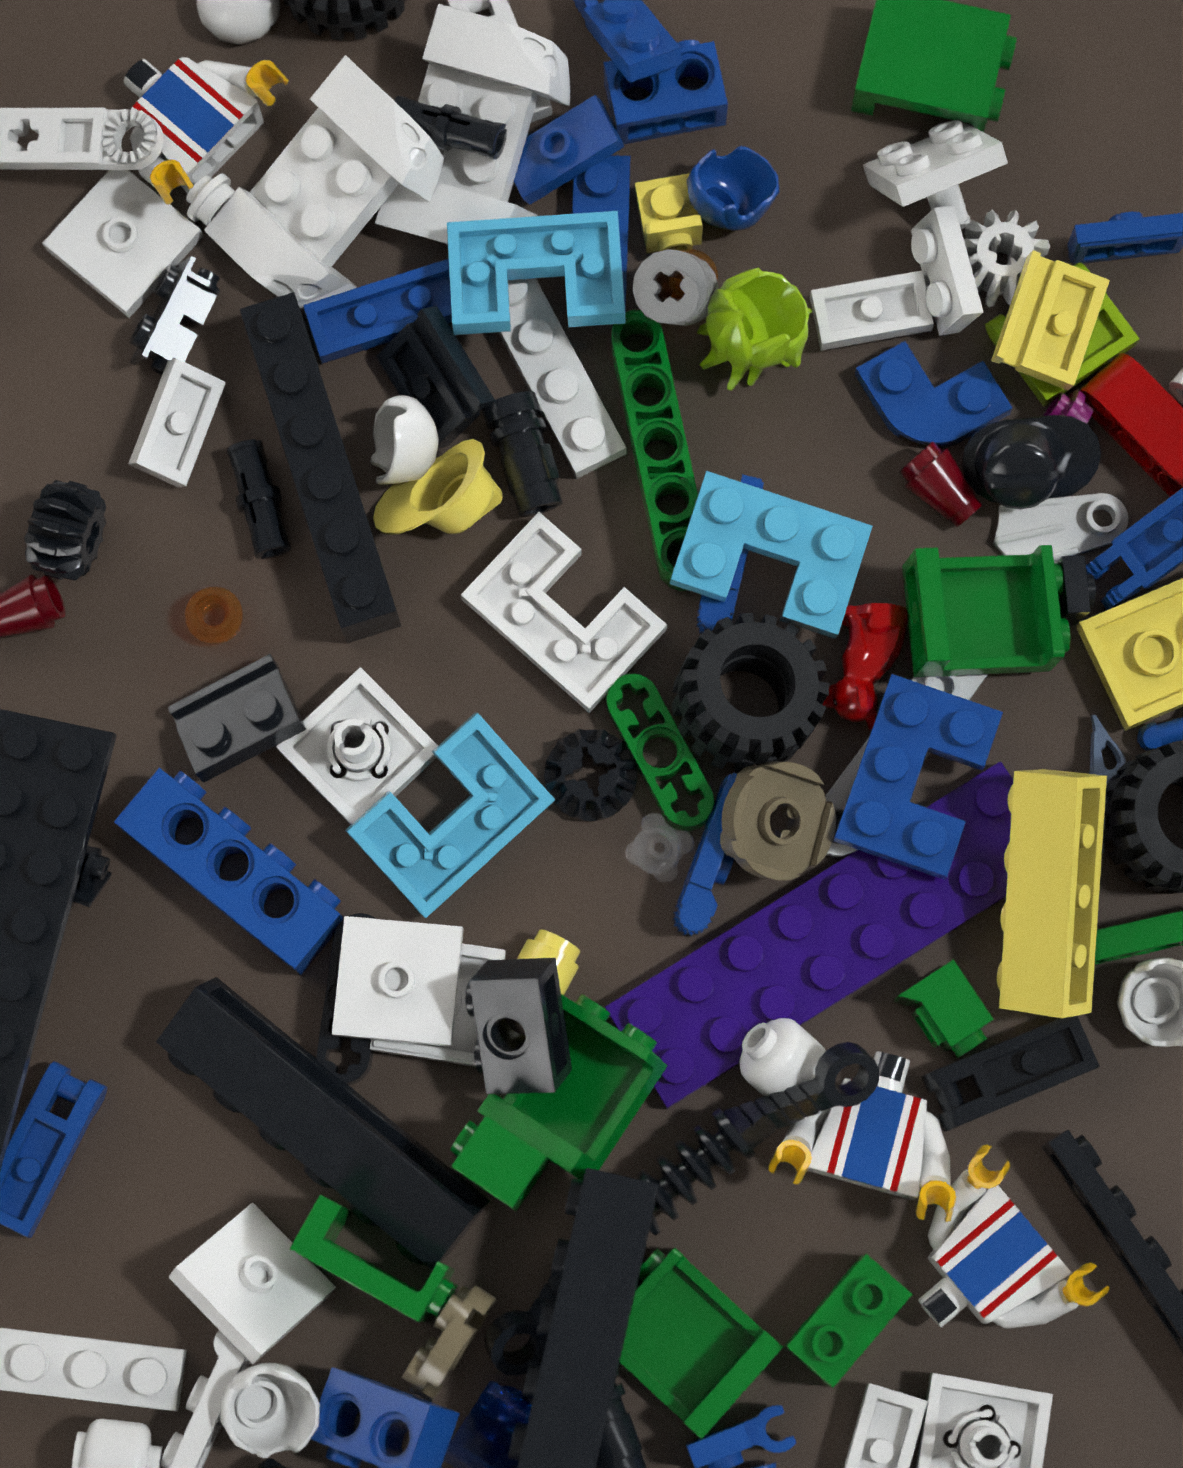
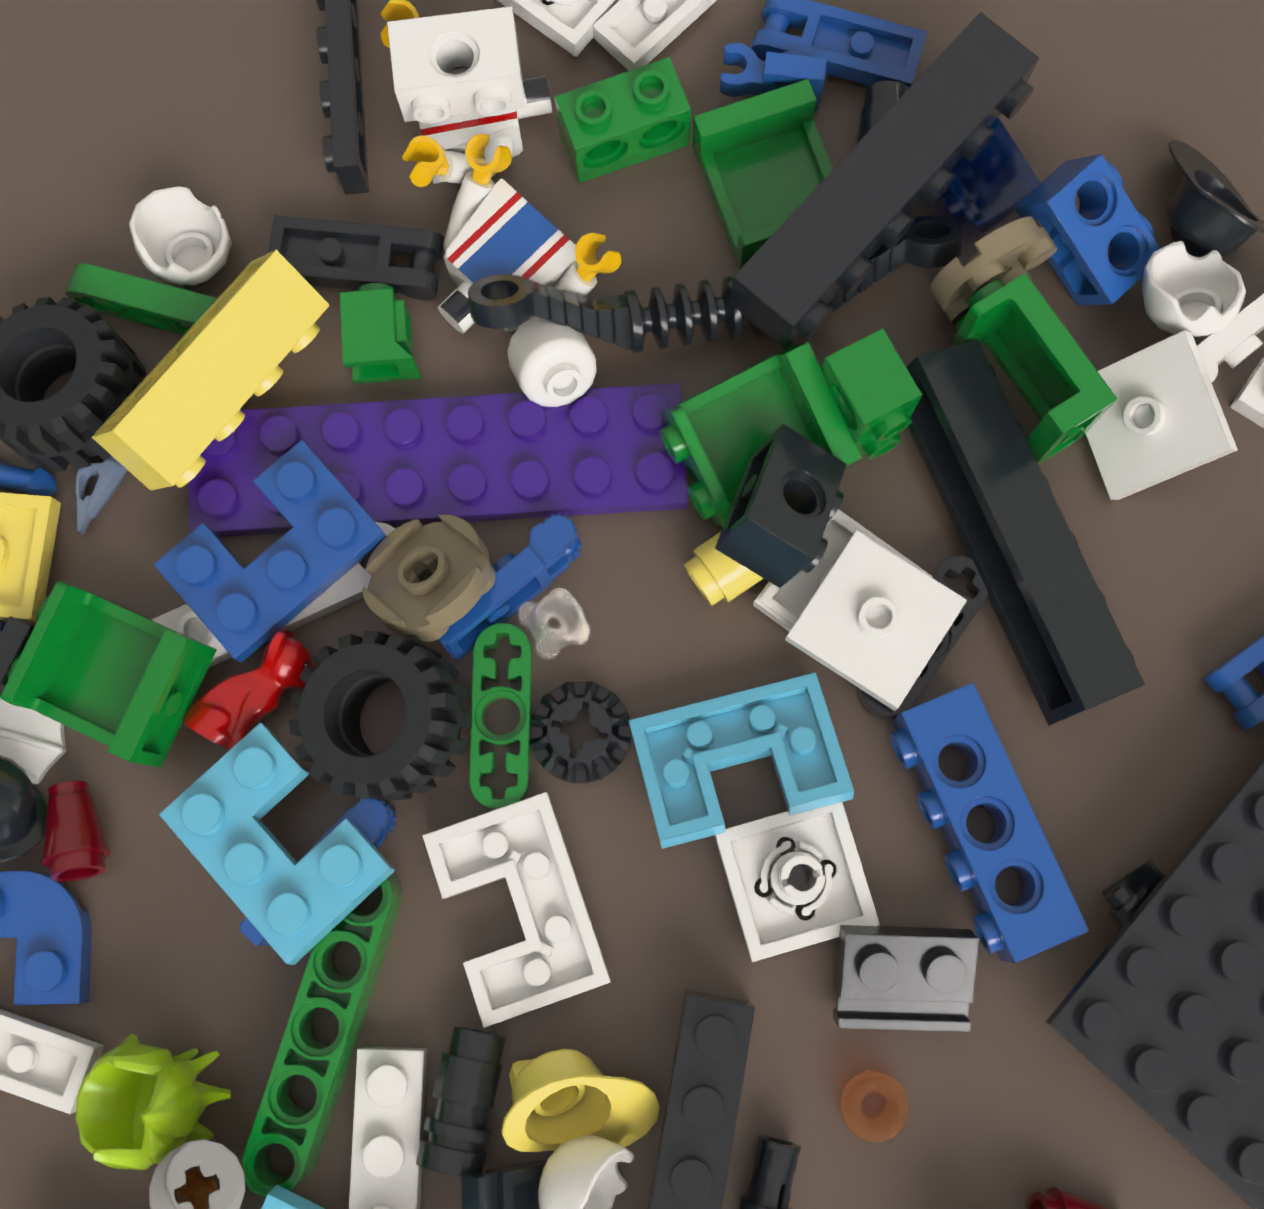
camera: 150 degrees left, 0 degrees up
(1044, 1259) = (433, 45): none -> white brick

